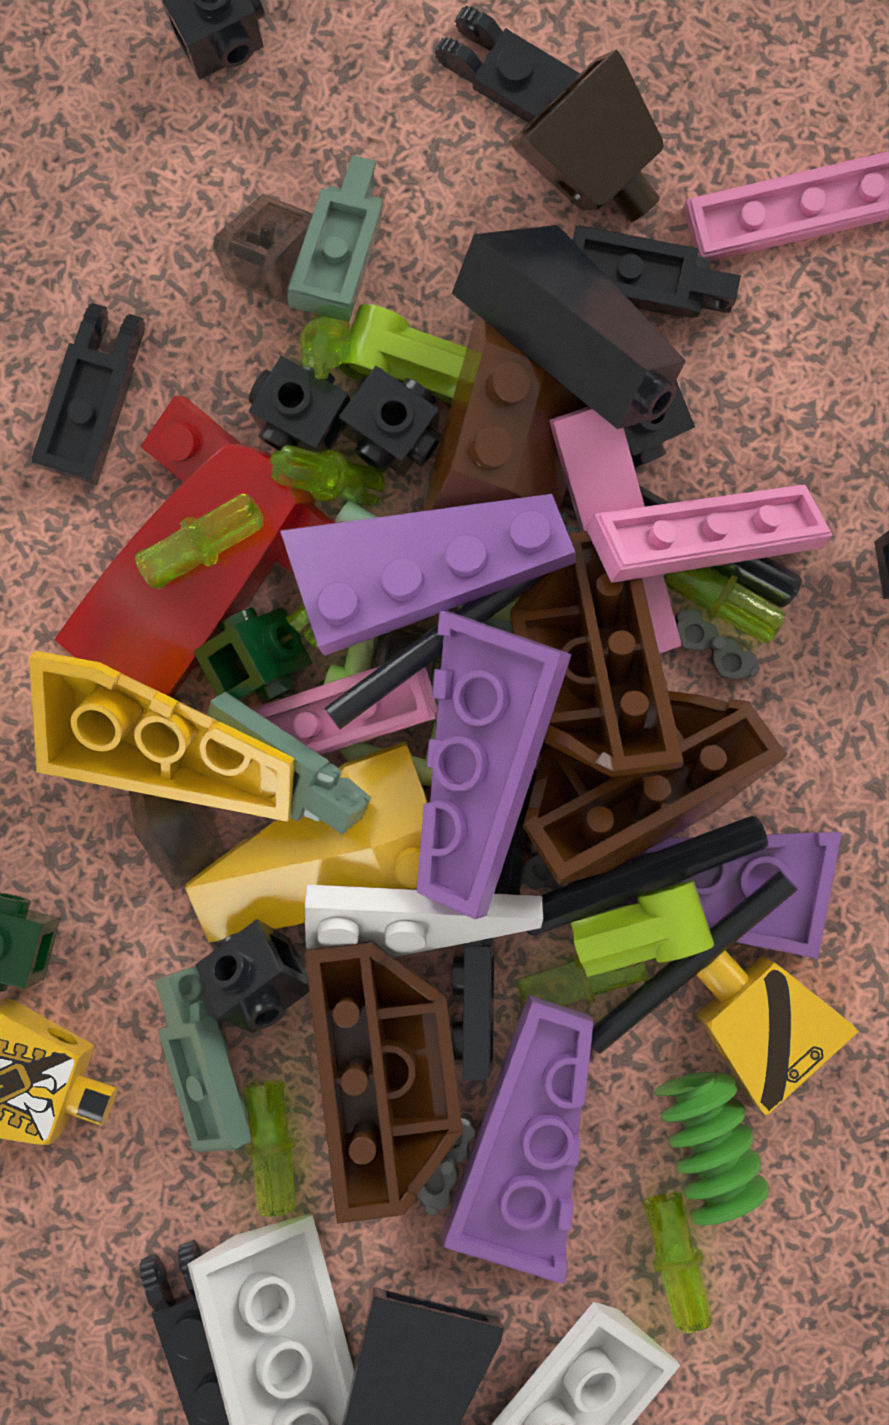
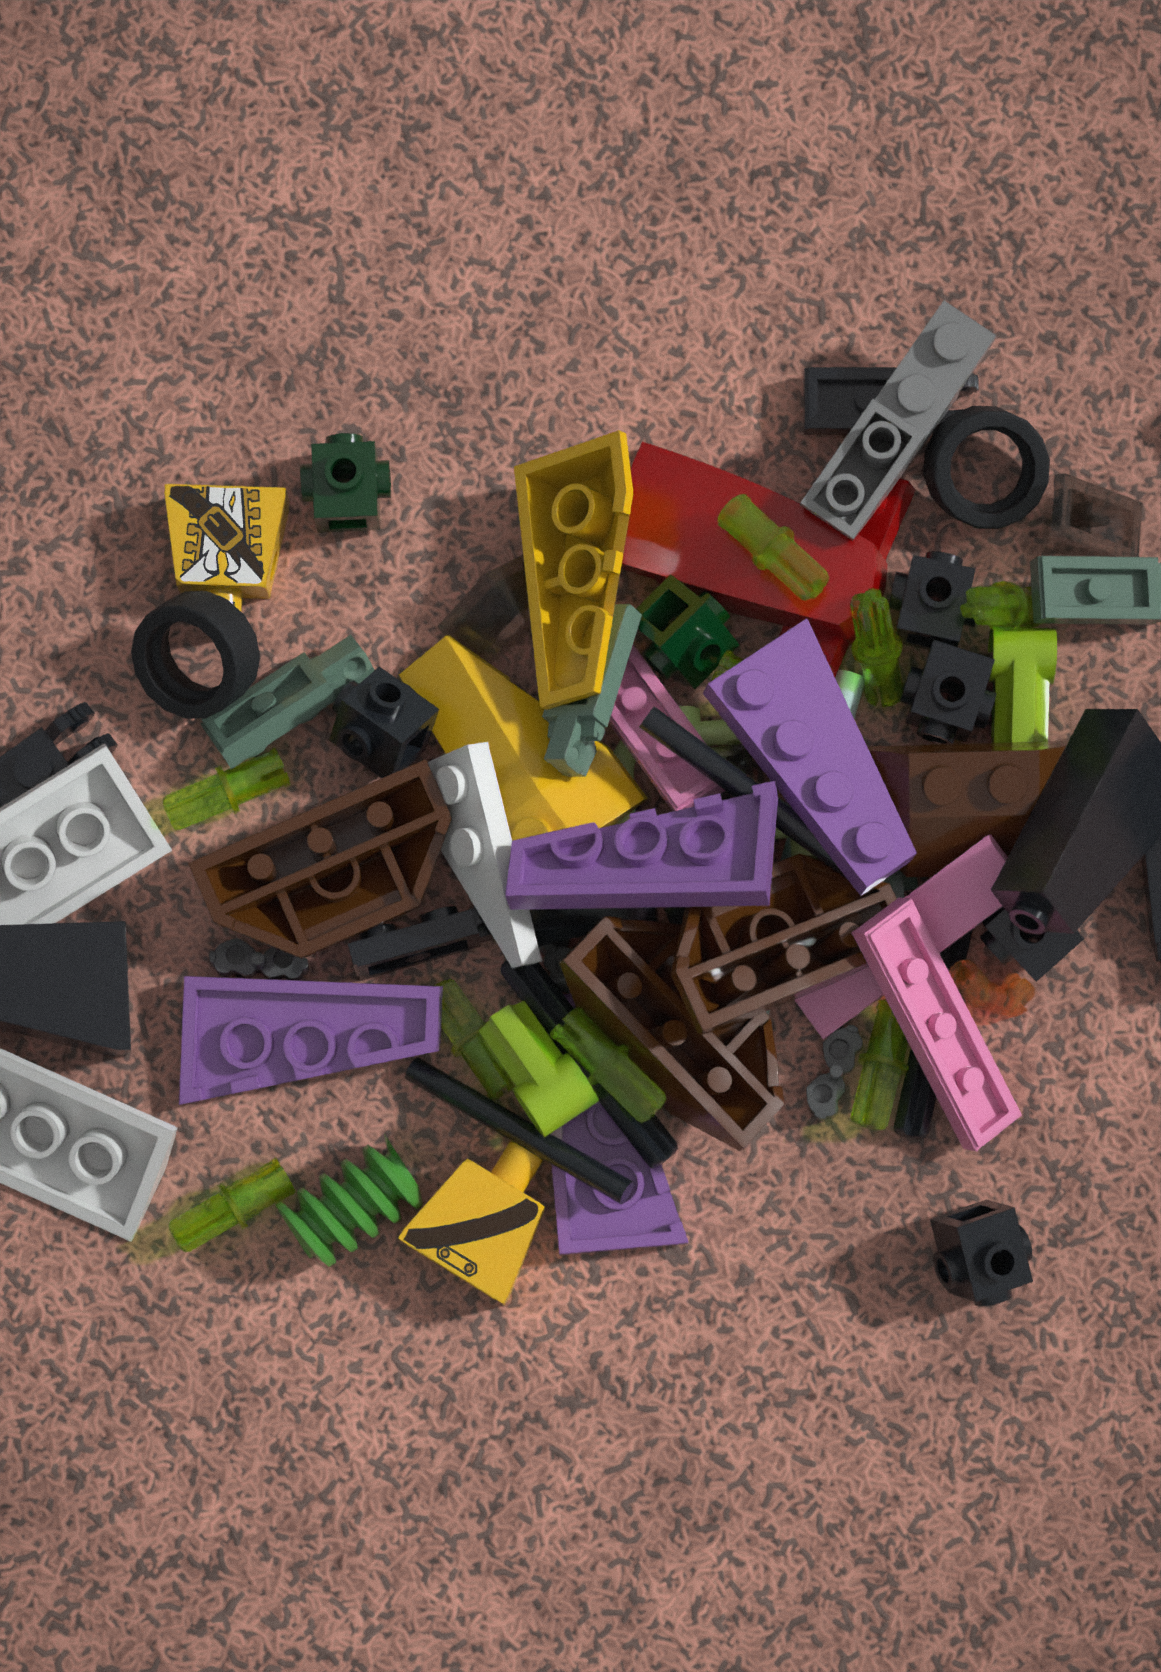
camera: 75 degrees right, 5 degrees down
(110, 381) = (898, 421): none -> light grey slope
(136, 1179) = (162, 676): none -> black tyre
(212, 285) = (1028, 489): none -> black tyre
(667, 861) = (609, 1065): none -> clear neon green axle
(692, 465) = (983, 994): none -> clear orange arm

